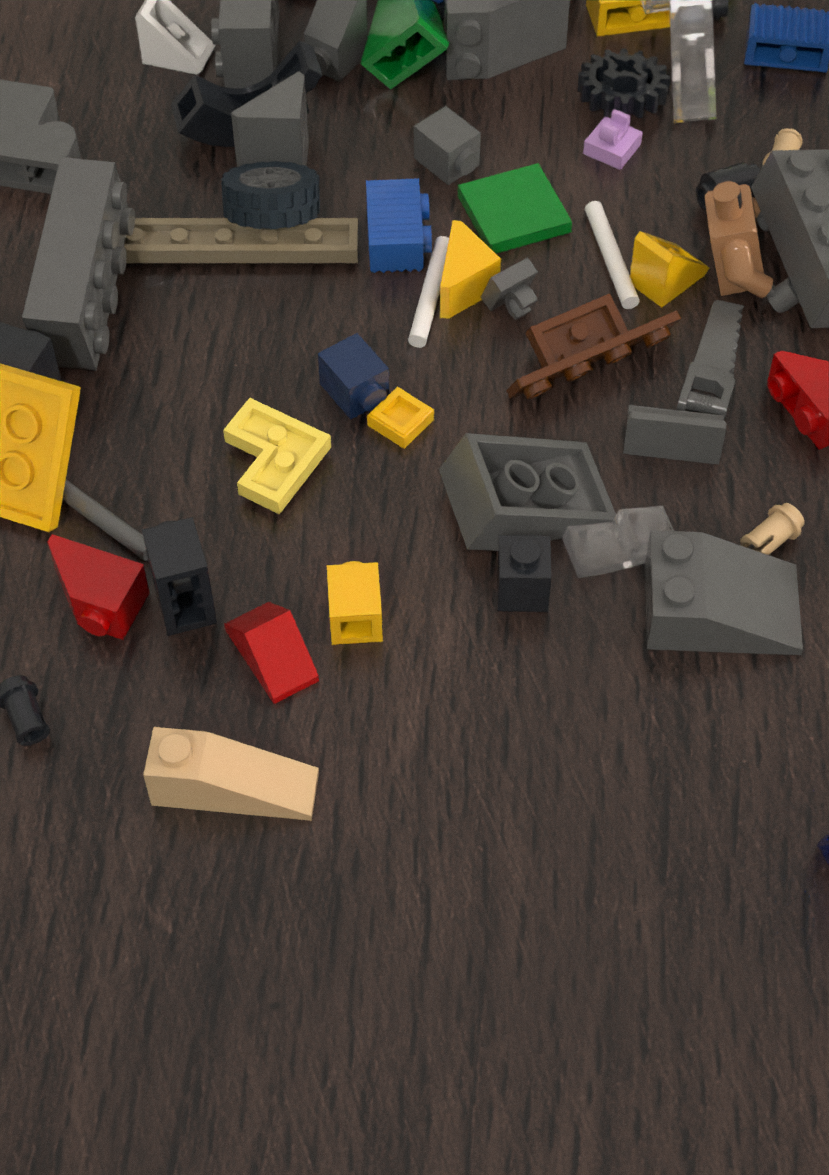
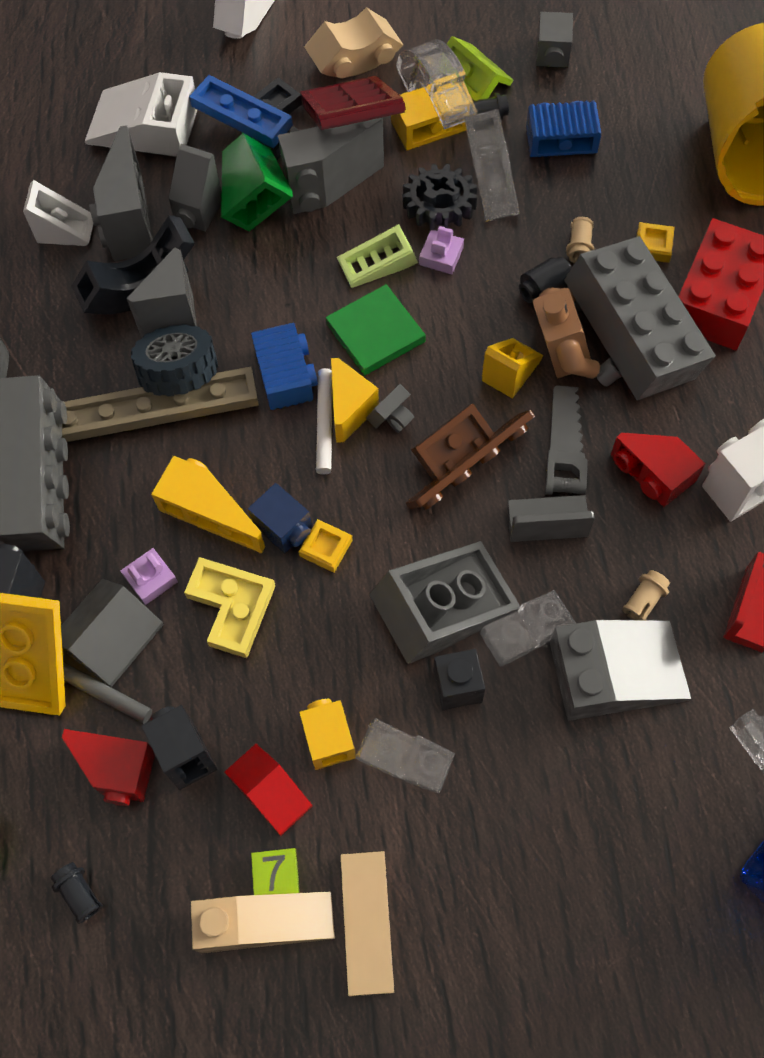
camera: 10 degrees left, 10 degrees up
(128, 458) = (108, 631): none -> dark grey slope
(186, 411) = (149, 576): none -> lavender tile
(260, 729) = (275, 872): none -> lime tile
(264, 341) = (197, 497): none -> yellow slope
(352, 809) = (367, 924): none -> tan tile
(440, 648) = (405, 756): none -> clear slope
(447, 145) = (309, 281): dark grey brick -> none
(558, 140) = (382, 243): none -> yellowish green slope
(612, 255) = (463, 358): white bar -> none

